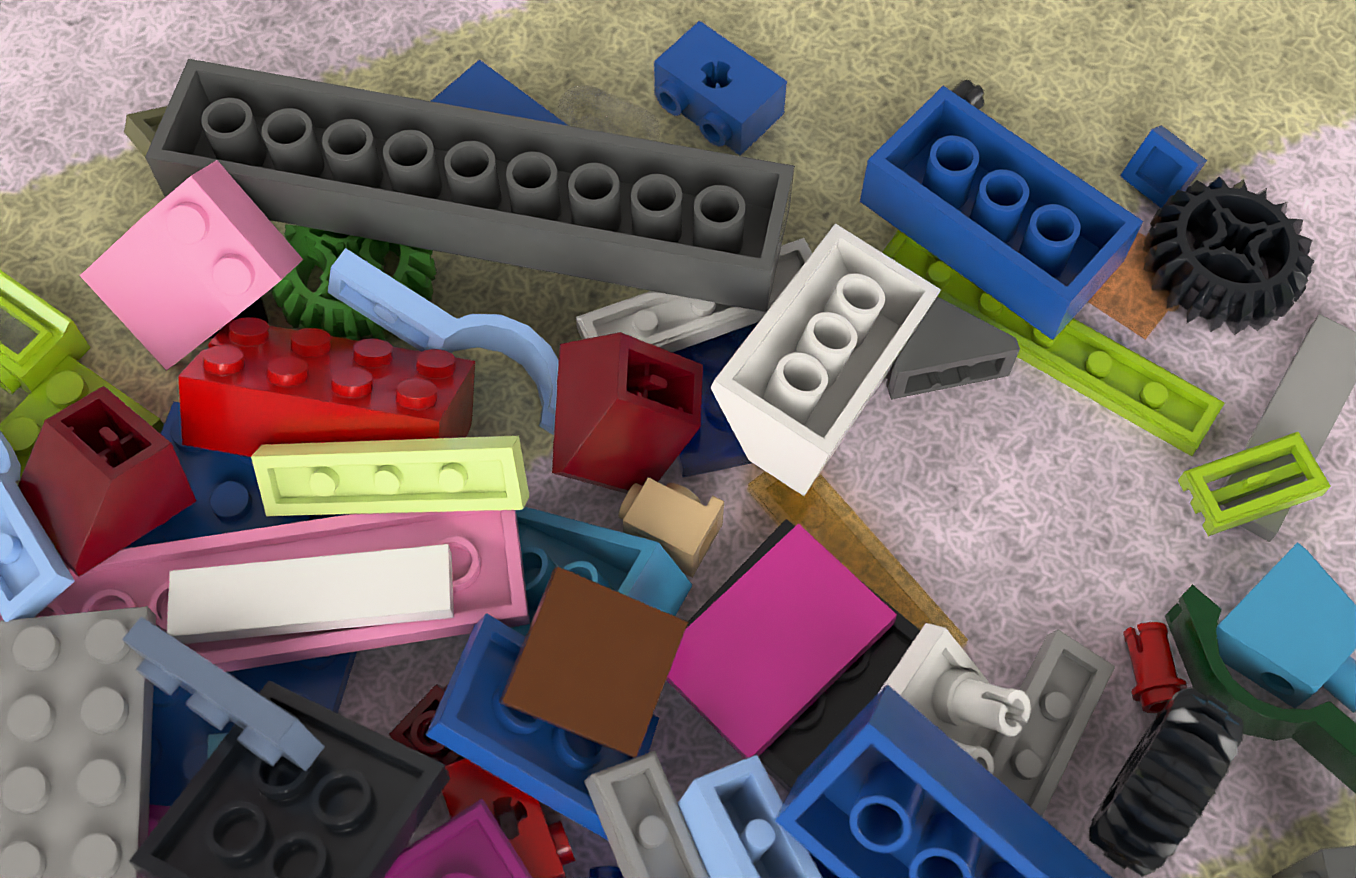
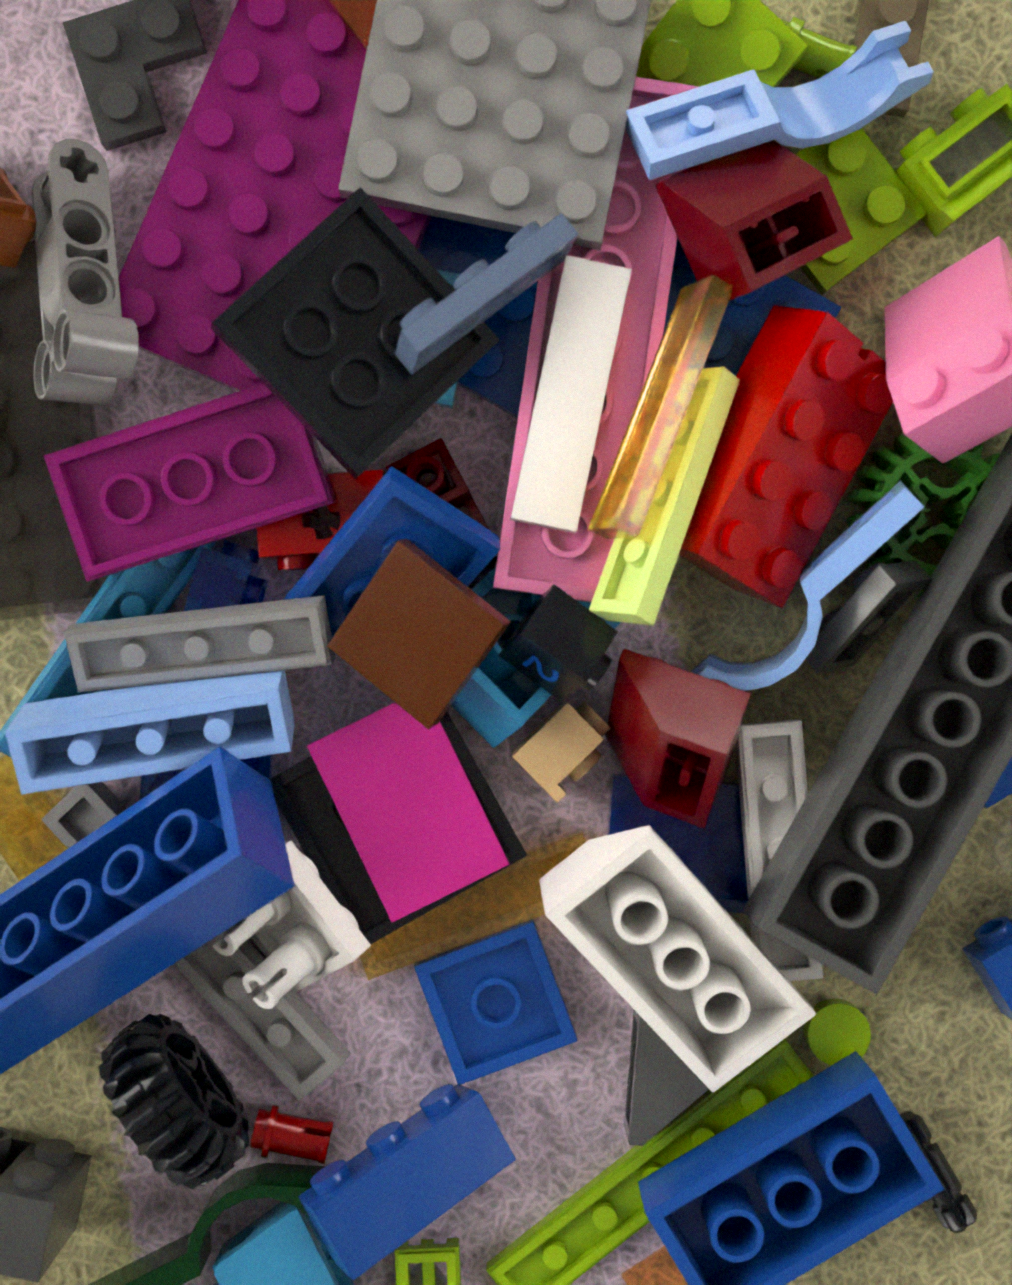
camera: 110 degrees right, 25 degrees up
(306, 501) = (660, 409): none -> clear yellow tile
(439, 280) = (879, 599): none -> dark grey plate
(564, 528) = (560, 644): none -> black brick
(853, 217) = (837, 1031): none -> lime tile
(940, 513) = (495, 1002): none -> blue plate
(1142, 531) = (405, 1178): none -> blue brick

